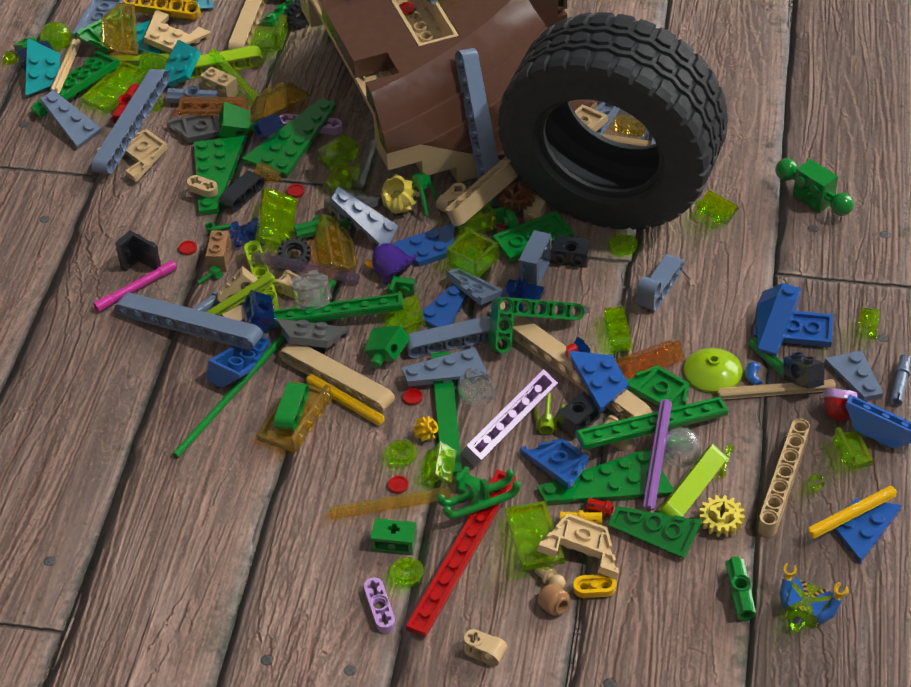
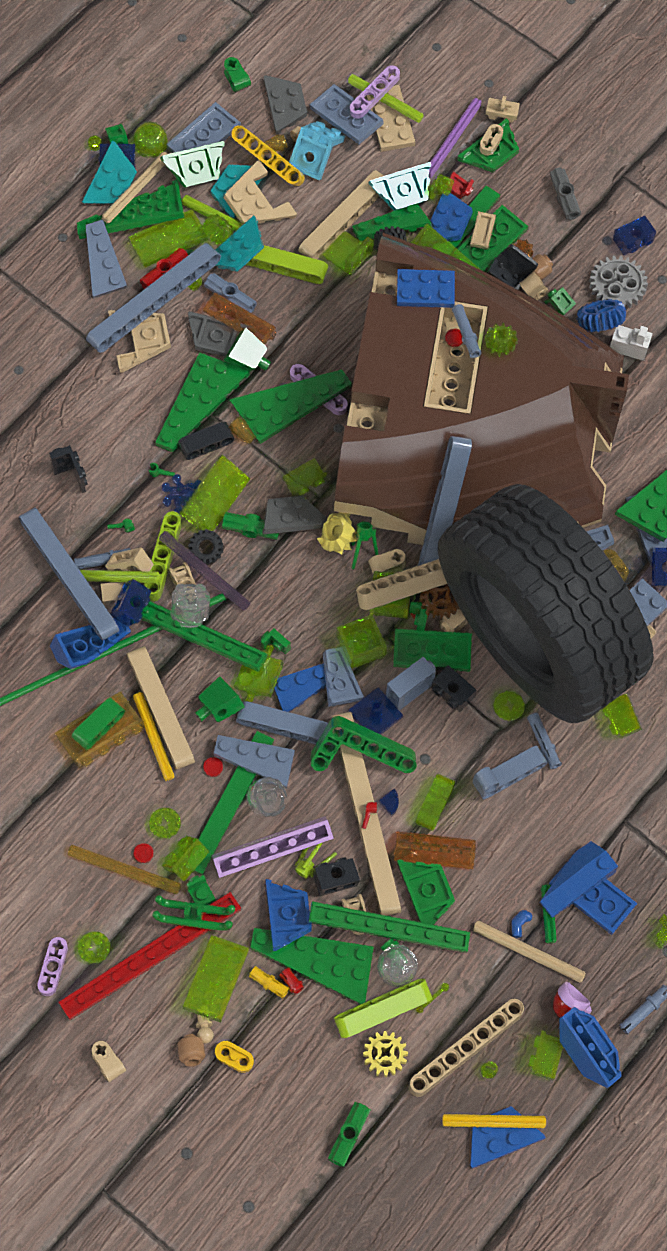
camera: 25 degrees right, 20 degrees up
(109, 300) = (83, 496): dark pink piece -> none
(120, 29) = (205, 175): clear yellow wedge -> none
(188, 247) = (122, 479): red piece -> none
(202, 186) = (168, 419): tan beam -> none
(219, 81) = (263, 292): tan brick -> none
(219, 250) = (143, 503): medium nougat brick -> none
(220, 60) = (287, 323): clear neon green piece -> none
(267, 125) = (271, 376): clear blue brick -> none
(276, 99) = (297, 348): clear yellow wedge -> none
(295, 190) = (257, 465): red piece -> none
(311, 334) = (164, 649): dark grey wing -> none
(334, 244) = (246, 560): clear yellow wedge -> none
(339, 149) = (326, 436): clear neon green brick -> none
(364, 217) = (290, 546): sand blue wing -> none
(389, 260) = (283, 607): dark purple hair -> none
(393, 536) = (108, 917): green brick -> none
(425, 428) = (198, 812): yellow gear -> none
(429, 245) = (330, 603): blue wing -> none
(584, 537) = (254, 1005): tan wing -> none
(600, 376) = (376, 852): blue wing -> none
(652, 243) = (547, 747): none -> sand blue pin
(657, 455) = (369, 963): medium lavender axle -> none
(663, 531) = (325, 1040): green wing -> none
(712, 369) = (485, 907): lime dish -> none
(803, 370) = (559, 952): black brick -> none
(808, 603) = (393, 1182): torso -> none
(857, 373) = (612, 978): sand blue wing -> none

